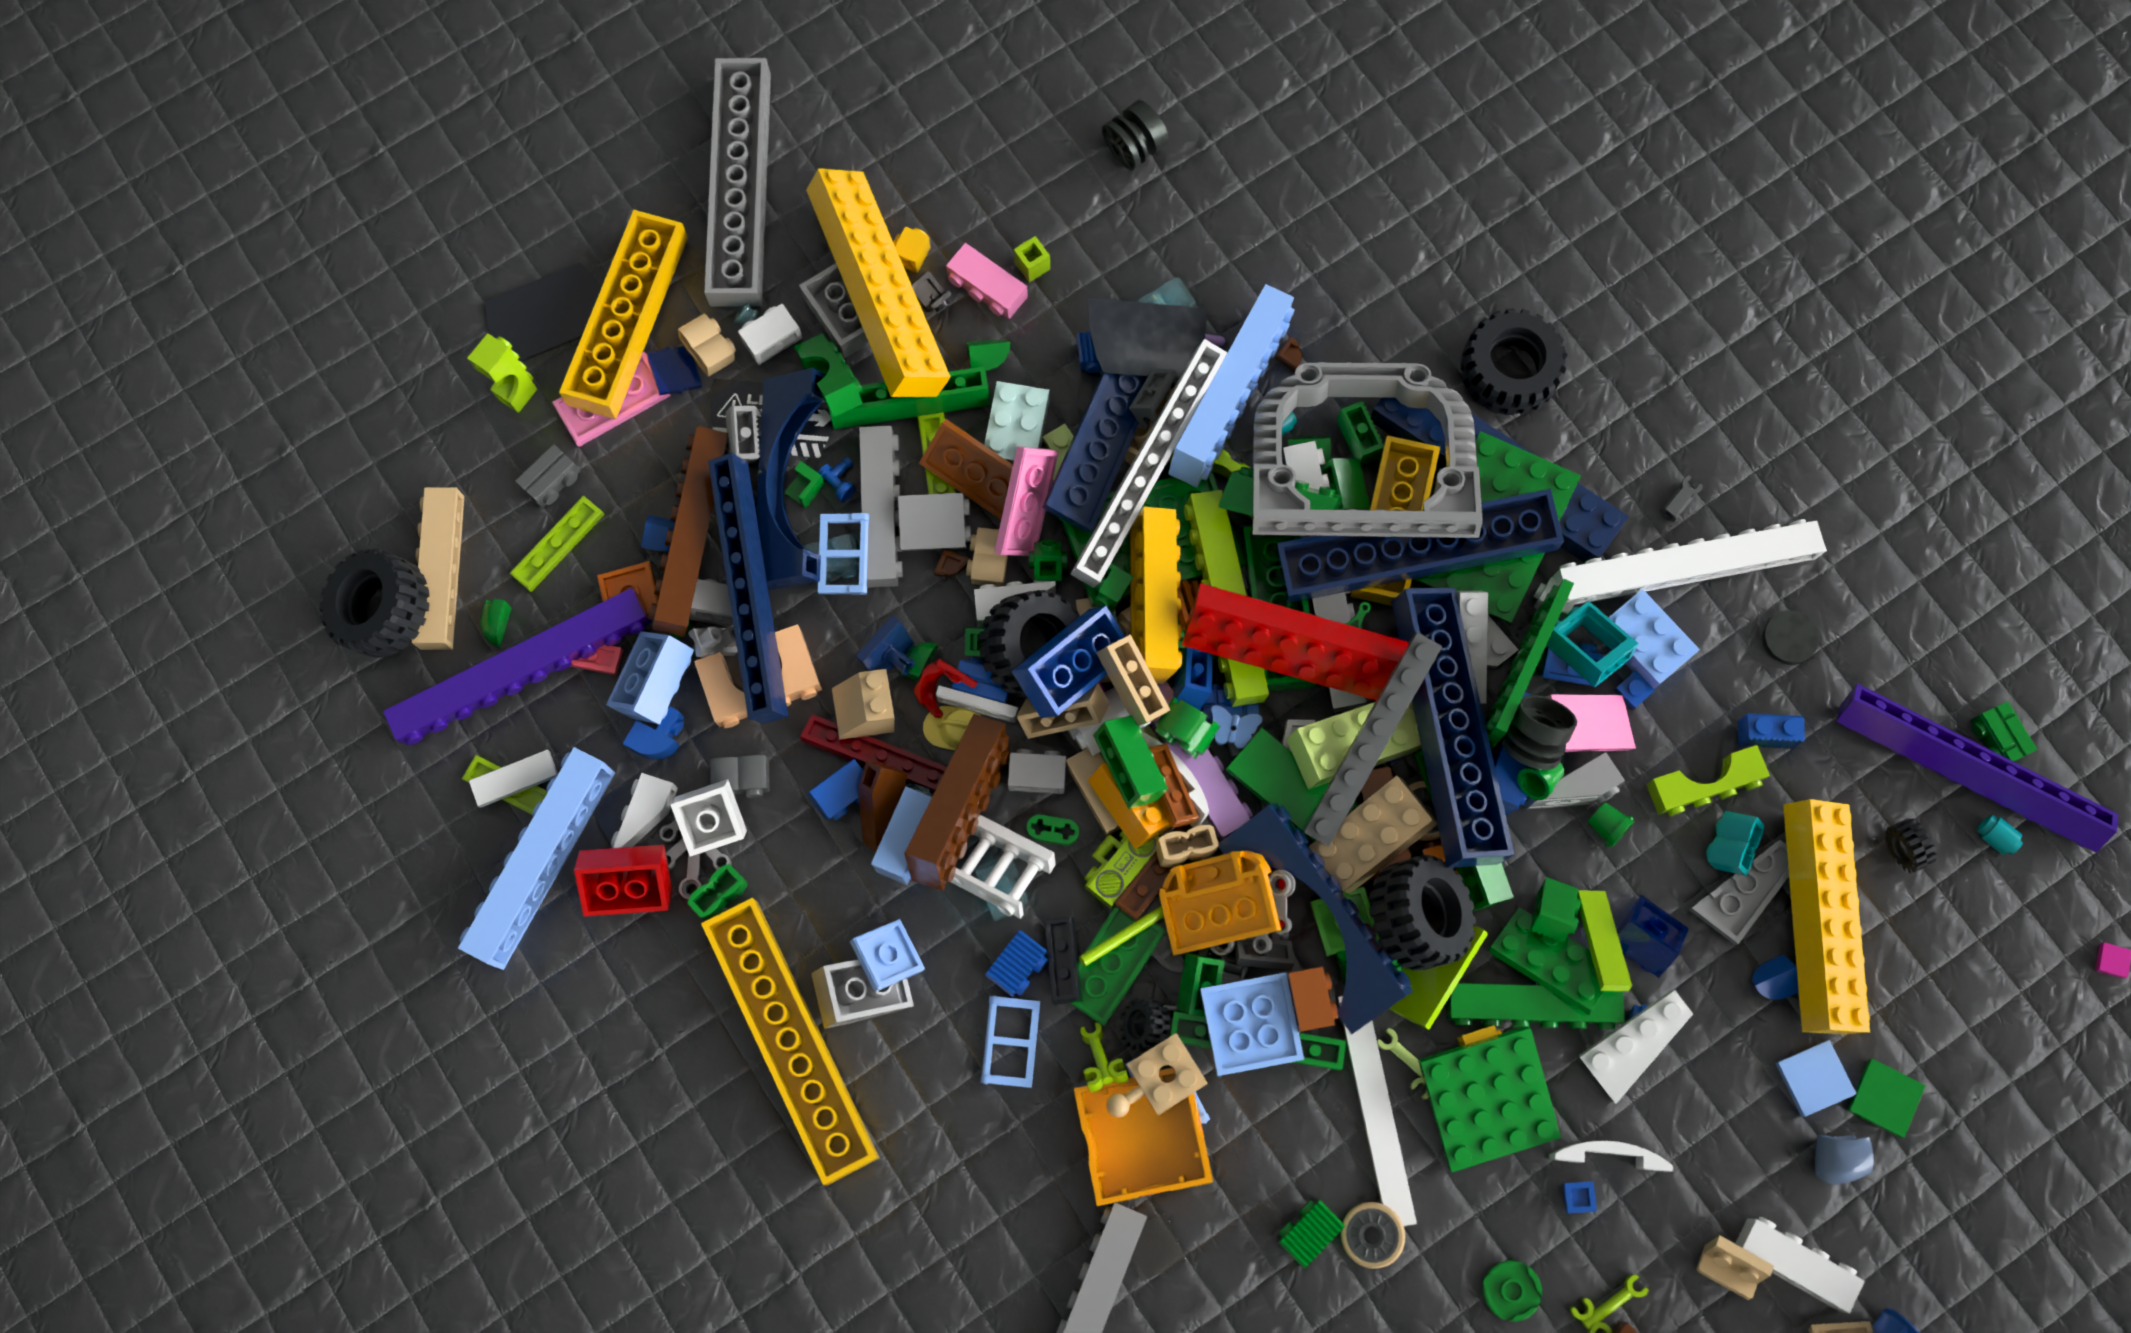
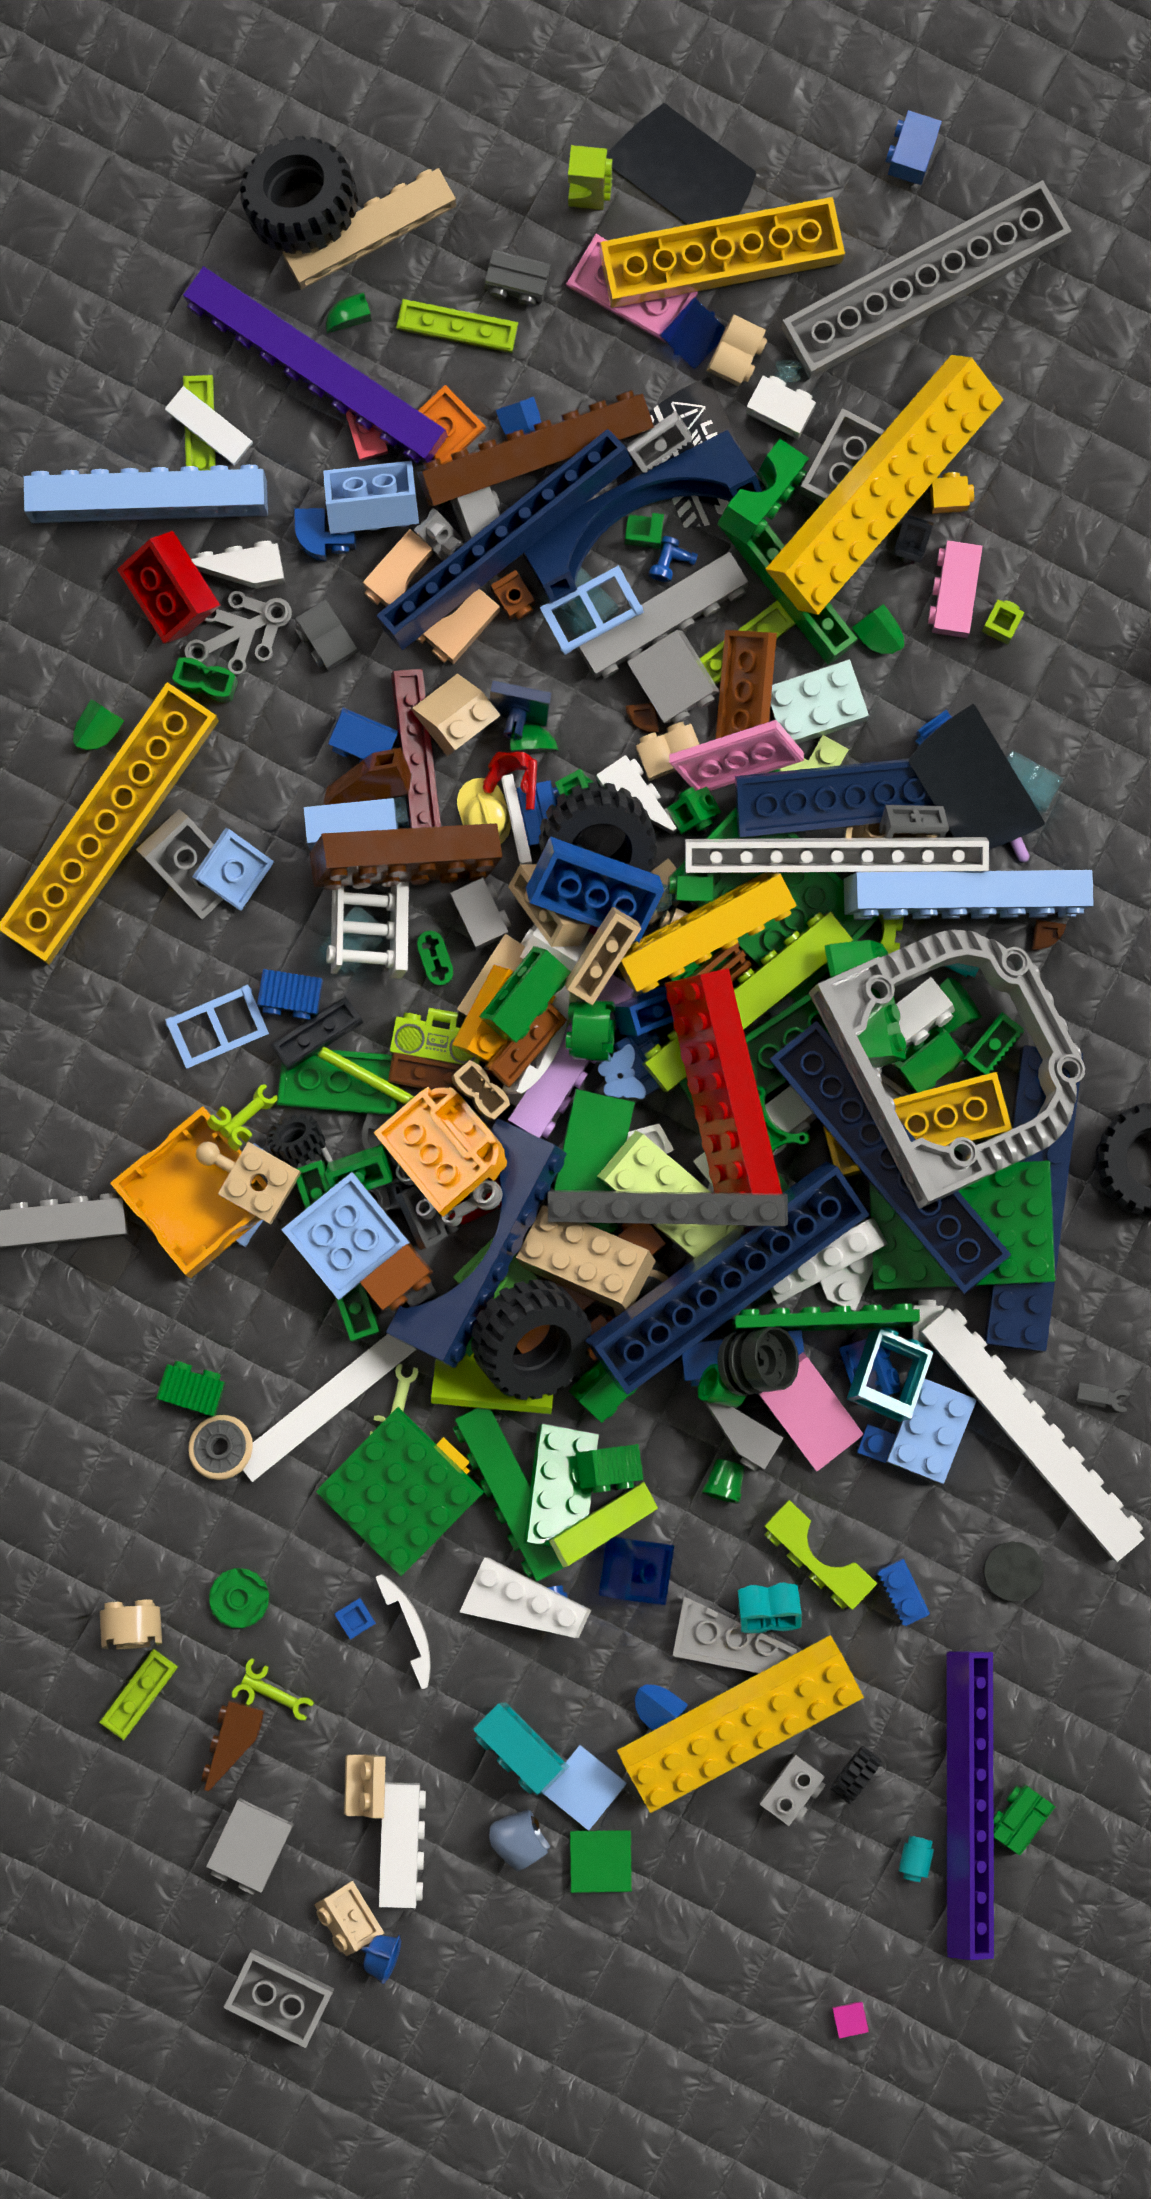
camera: 60 degrees right, 10 degrees up
(633, 139) = (914, 147): none -> brick
(702, 1006) = (96, 726): none -> green brick
(708, 817) = (268, 631): white brick -> none
(803, 618) = (502, 589): none -> dark orange brick
(1766, 1113) = (520, 1749): none -> teal brick
(1897, 905) = (792, 1790): none -> light grey brick

